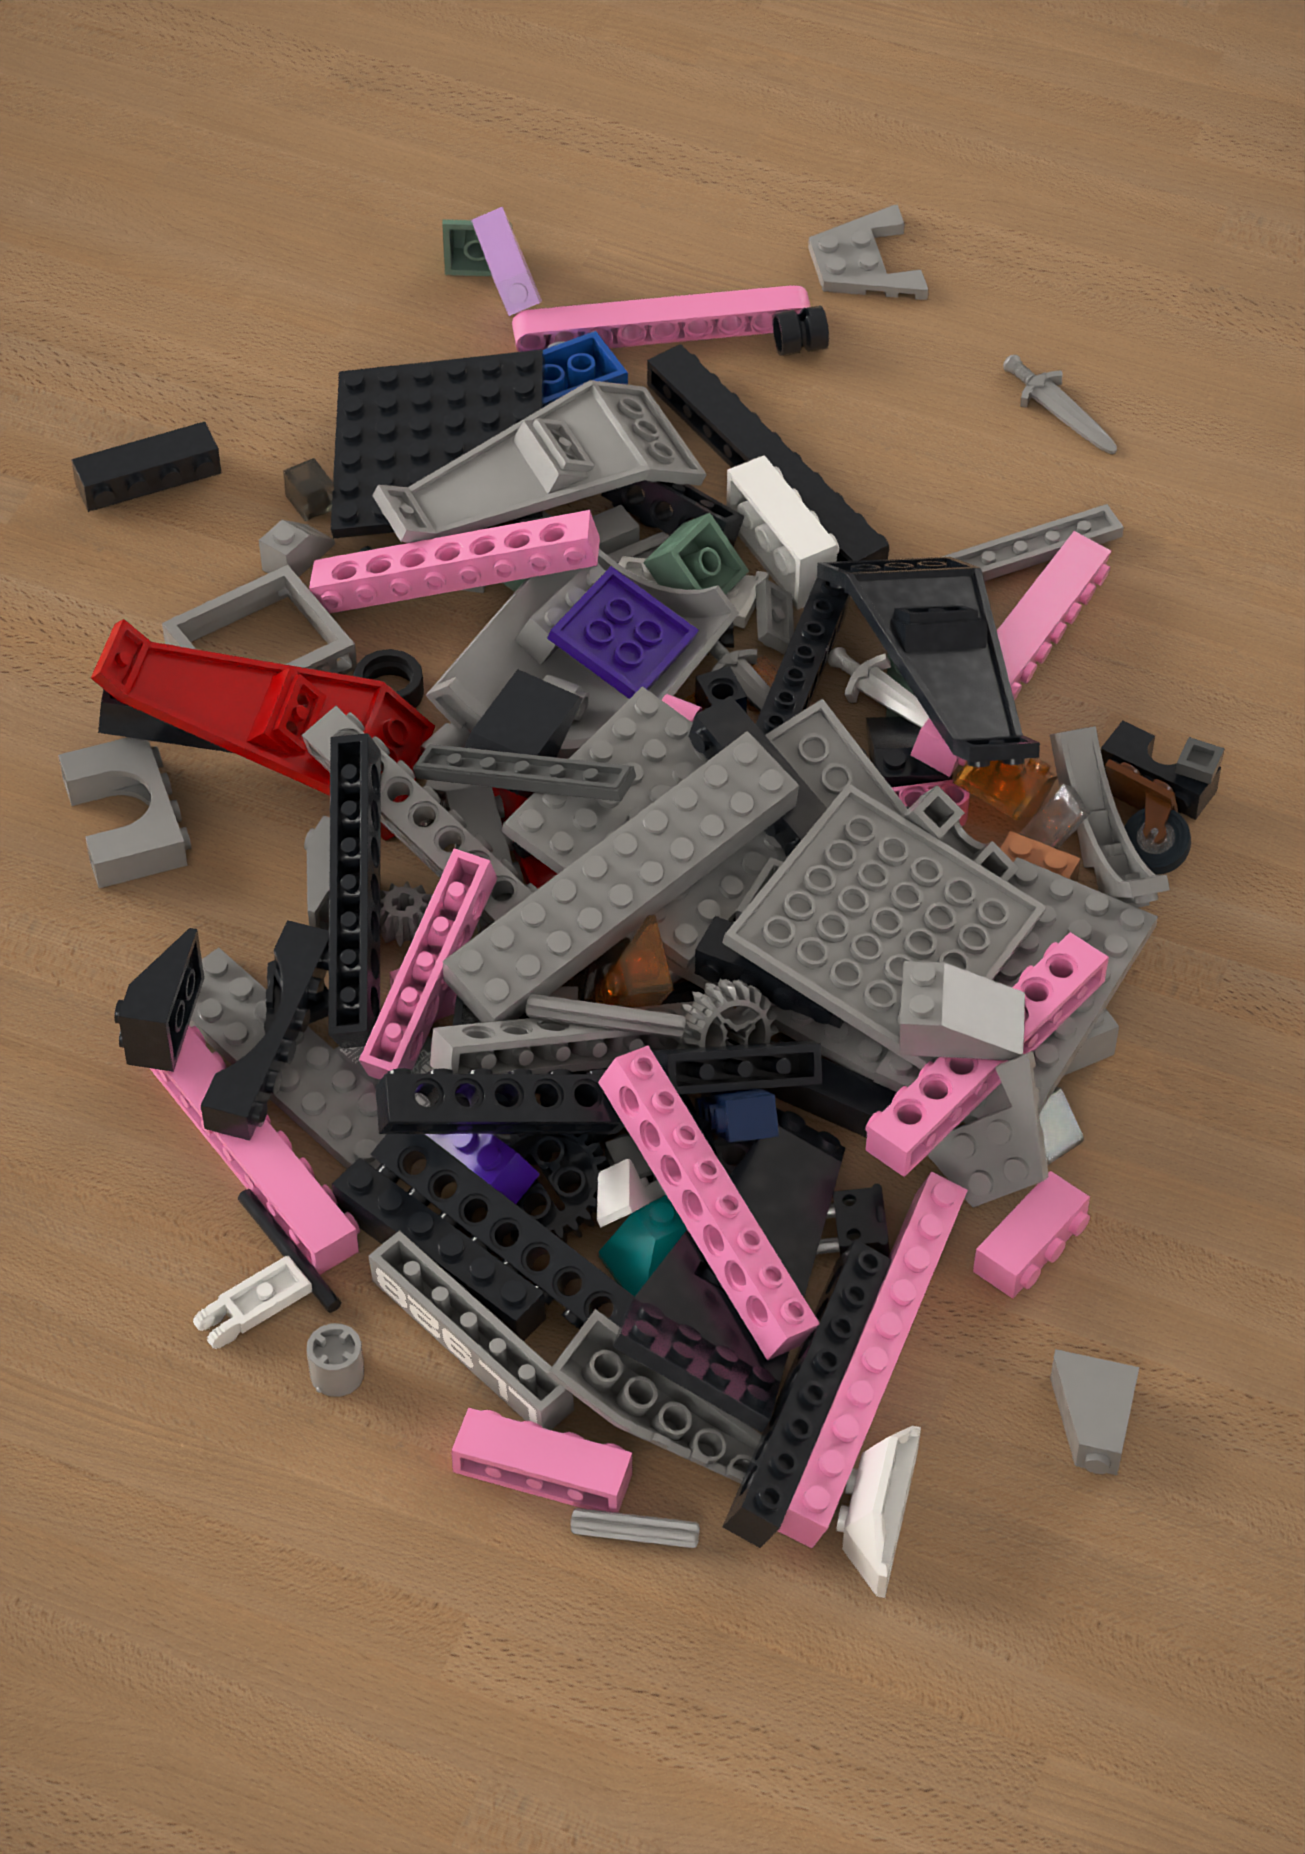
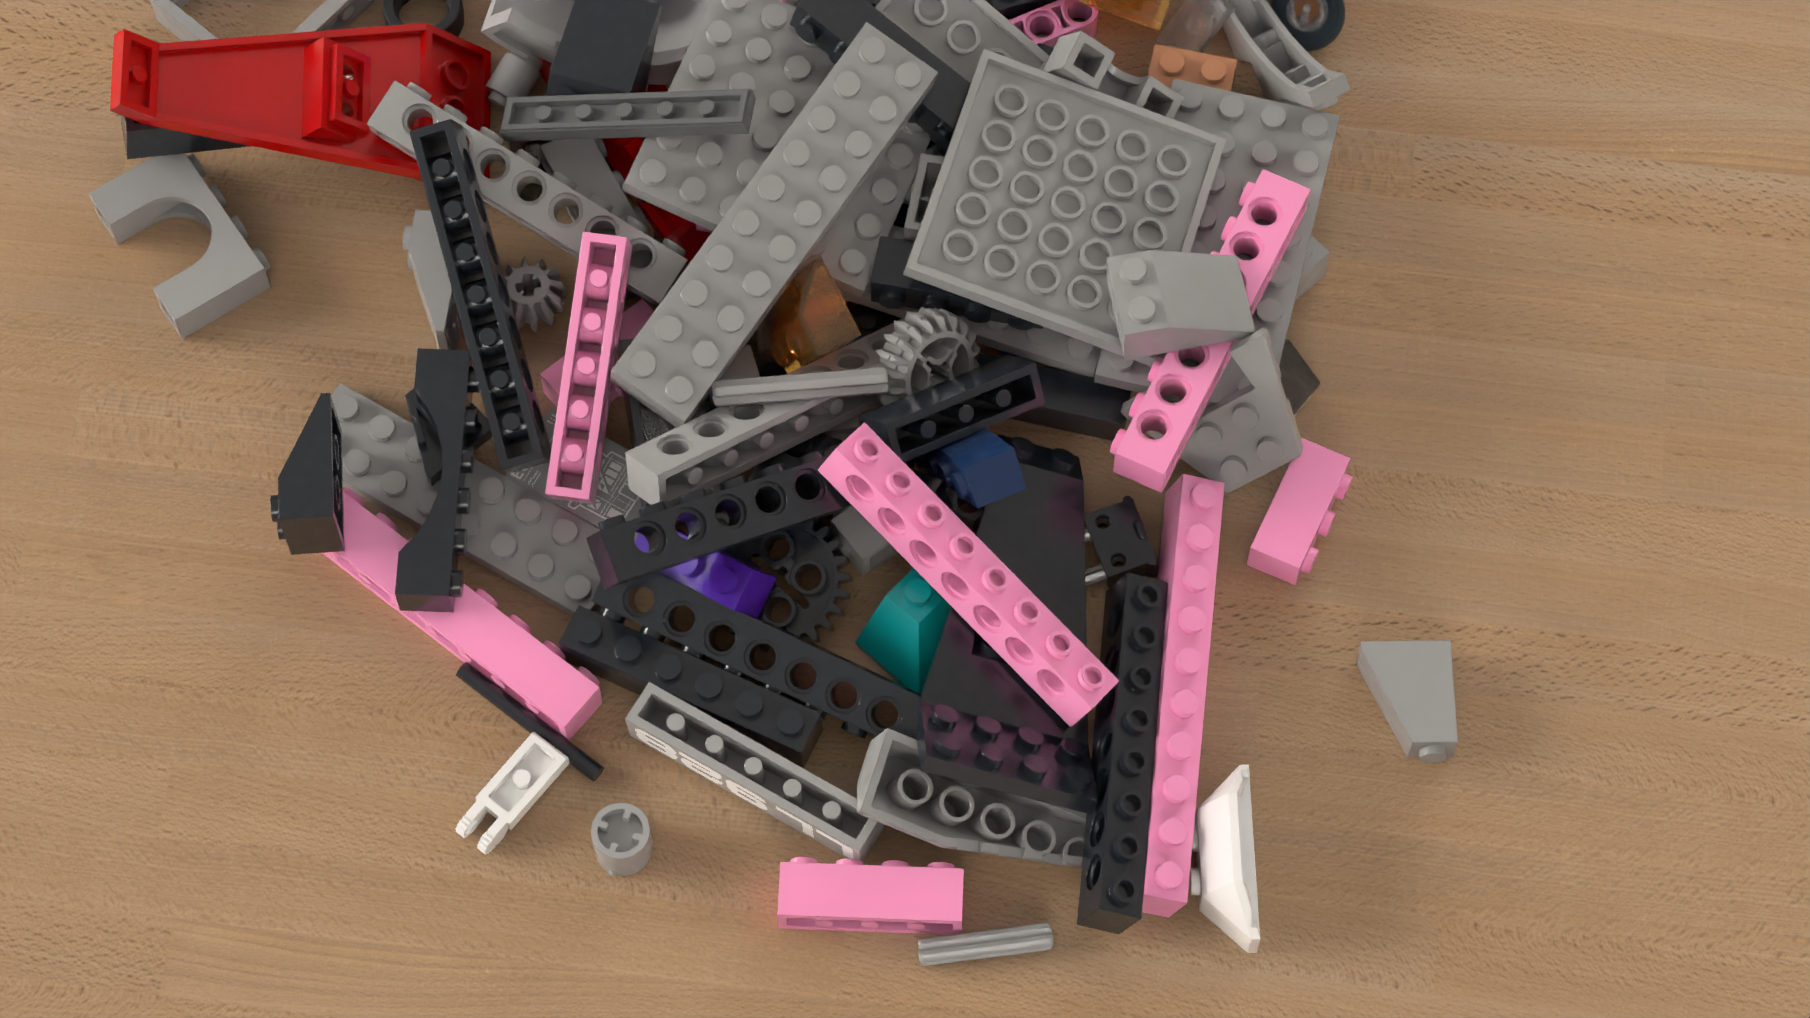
camera: 15 degrees left, 15 degrees up
(623, 1192) = (871, 579): white slope -> none

